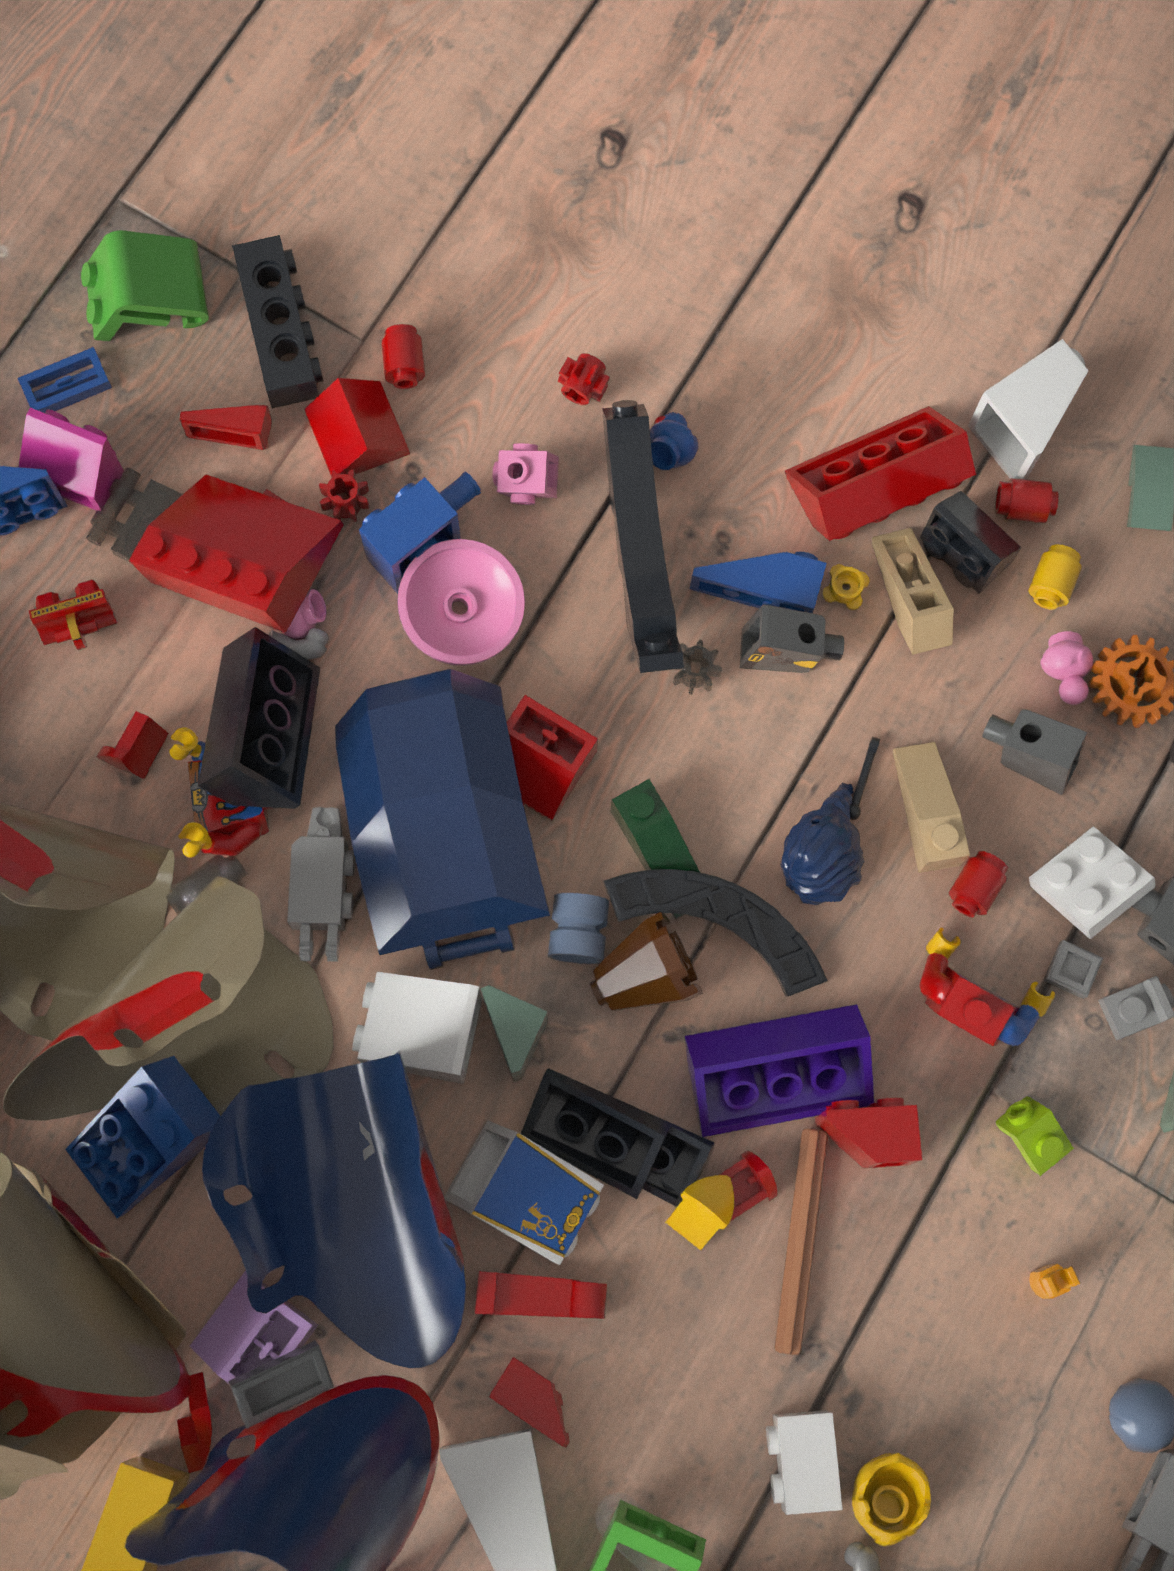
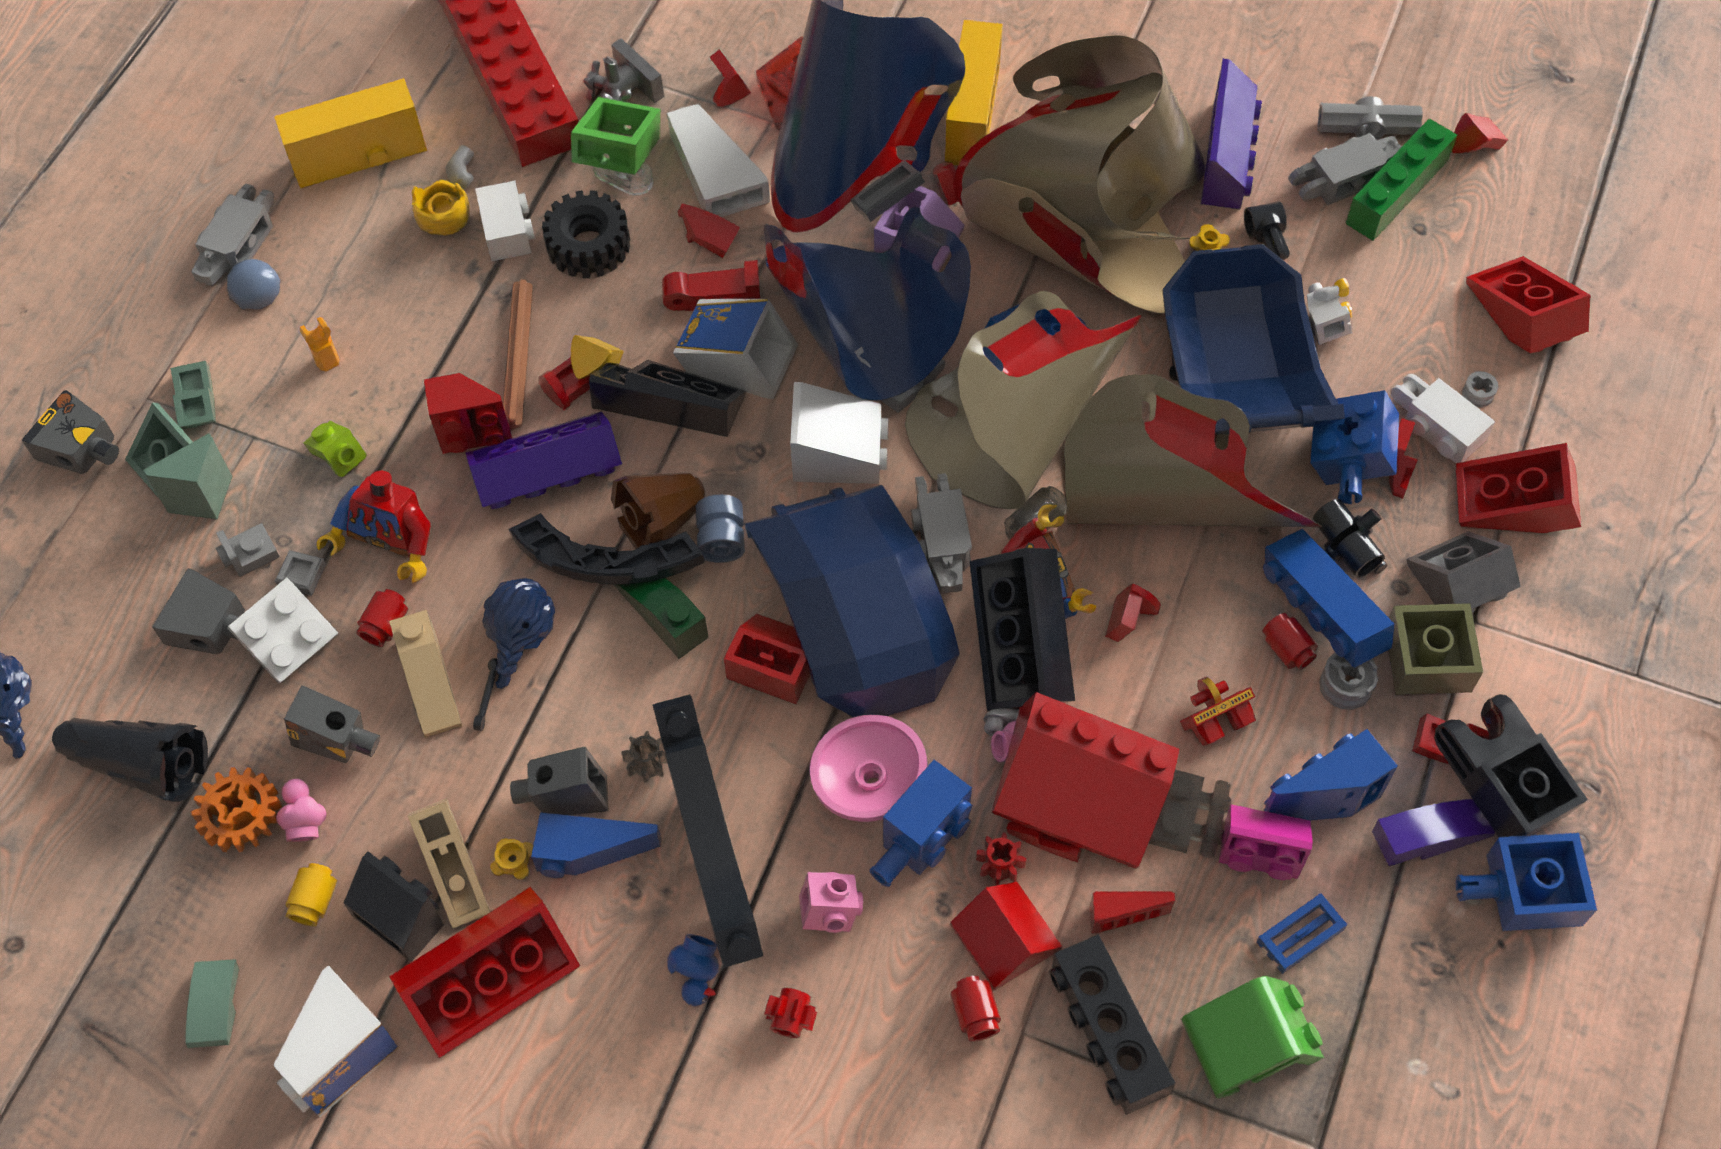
camera: 175 degrees right, 15 degrees down
(516, 1027) = (760, 444): sand green slope -> none
(732, 1424) = (582, 215): none -> black tyre
(1026, 500) = (346, 960): red brick -> none

